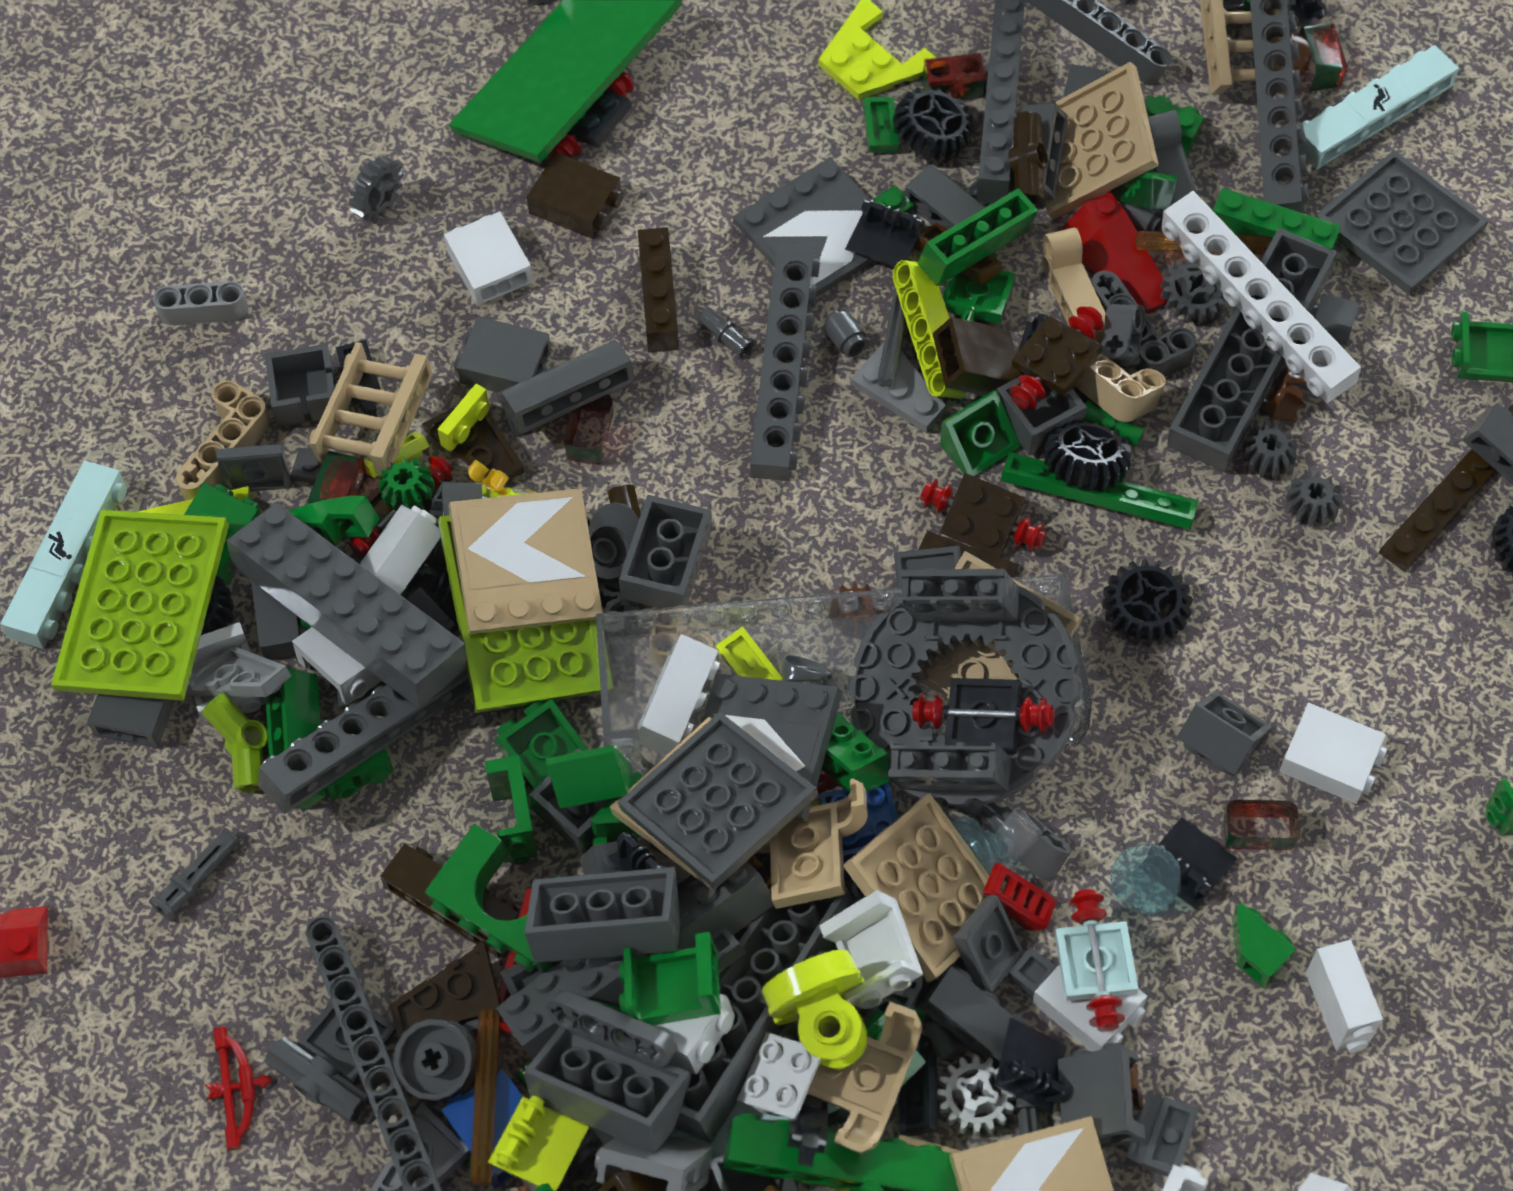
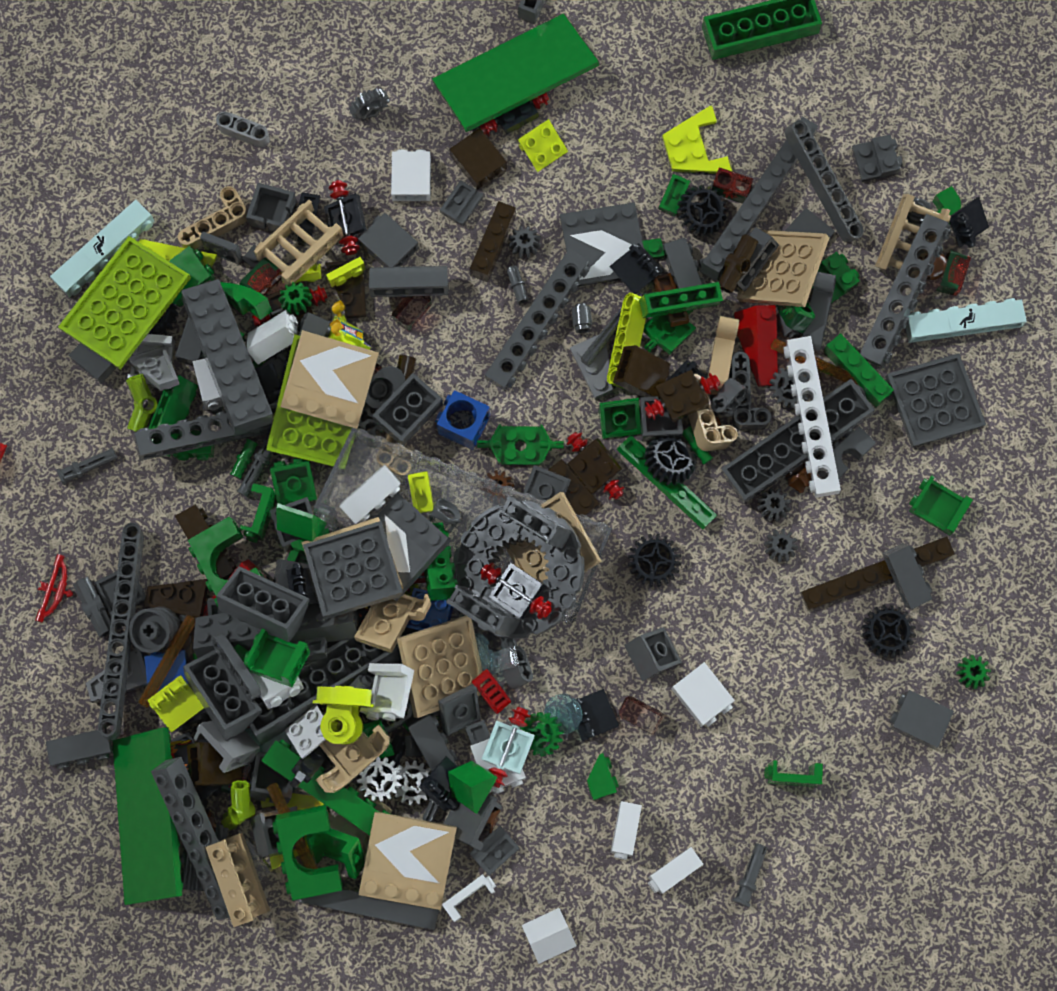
camera: 25 degrees right, 15 degrees up
(421, 336) = (347, 214): none -> black plate
(444, 749) = (243, 459): none -> green pin
(472, 738) = (262, 459): none -> dark grey pin
(582, 262) = (461, 203): none -> dark grey plate
(656, 141) = (542, 145): none -> neon yellow hinge
(703, 271) = (530, 246): none -> dark grey gear
(752, 513) = (465, 437): none -> blue brick
(874, 522) = (504, 440): none -> green plate
(938, 1097) = (389, 778): none -> white gear
(1075, 1043) = (471, 785): none -> green slope
(1128, 907) = (548, 729): none -> green gear
(1454, 1020) = (674, 871): none -> white brick

